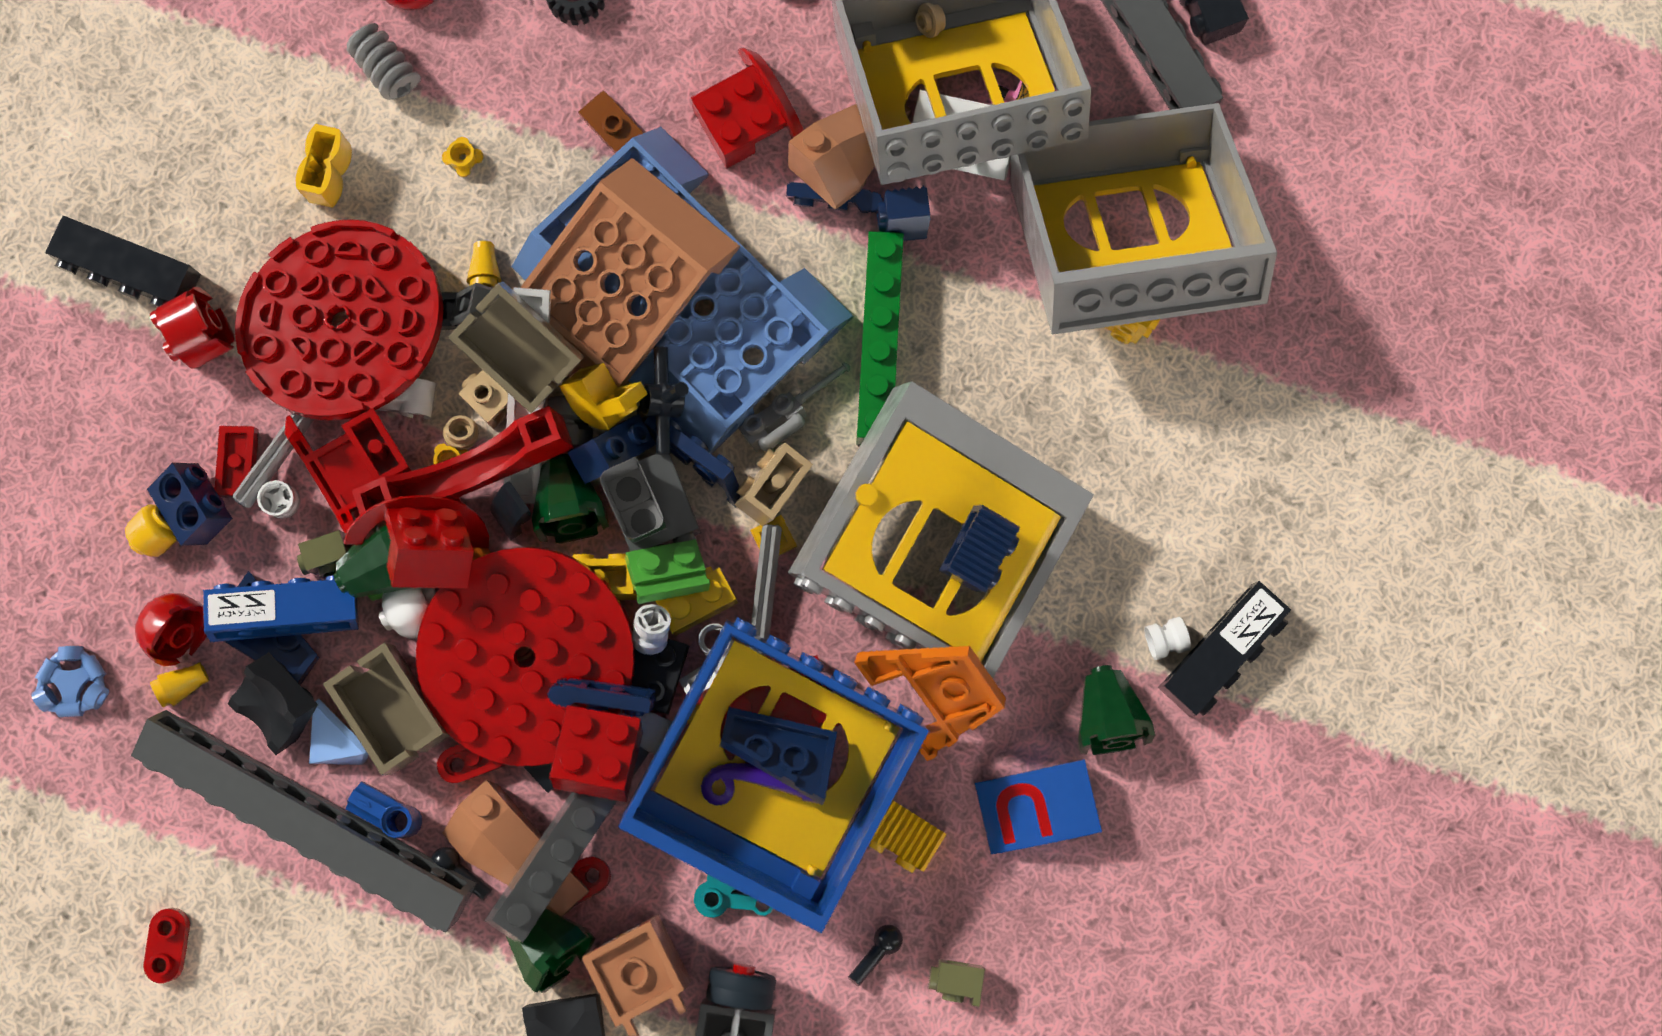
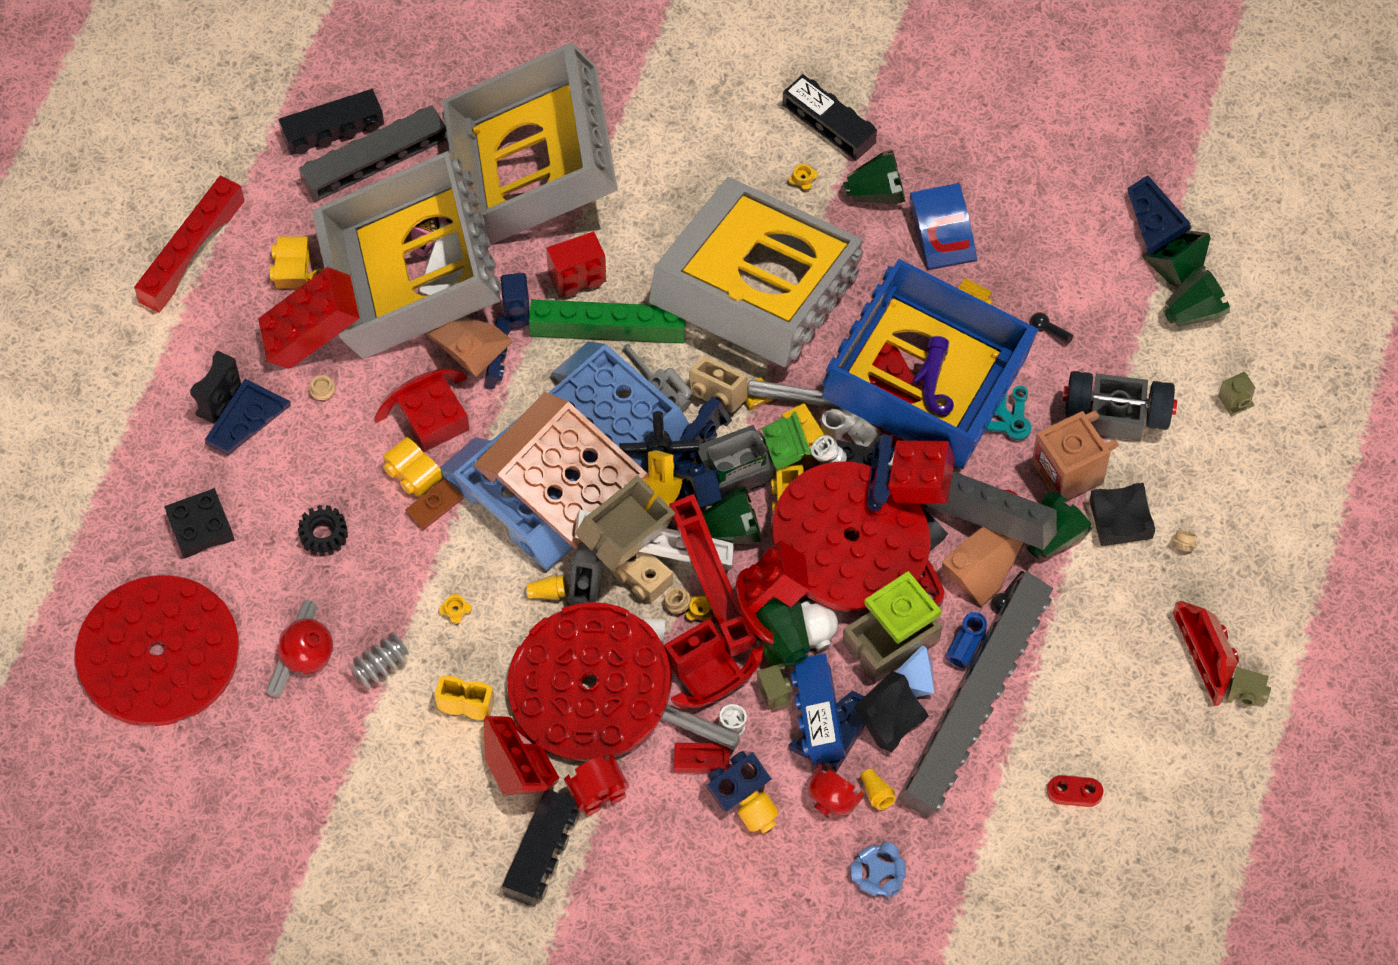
camera: 90 degrees left, 20 degrees down
(227, 235) = (515, 759): none -> red wedge
(401, 721) = (902, 607): none -> lime plate
(510, 510) = (739, 551): black slope -> none
(662, 94) = (411, 467): none -> yellow brick
(782, 748) = (913, 358): dark blue wing -> none
(930, 19) = (364, 285): tan plate -> none
(948, 682) = (862, 259): orange wing -> none
(957, 981) = (1065, 274): olive brick -> none
(962, 293) = (576, 264): none -> red brick
(981, 549) = (771, 231): dark blue brick -> none
(1135, 608) = (803, 170): none -> yellow plate
(1168, 638) = (822, 149): white wheel -> none

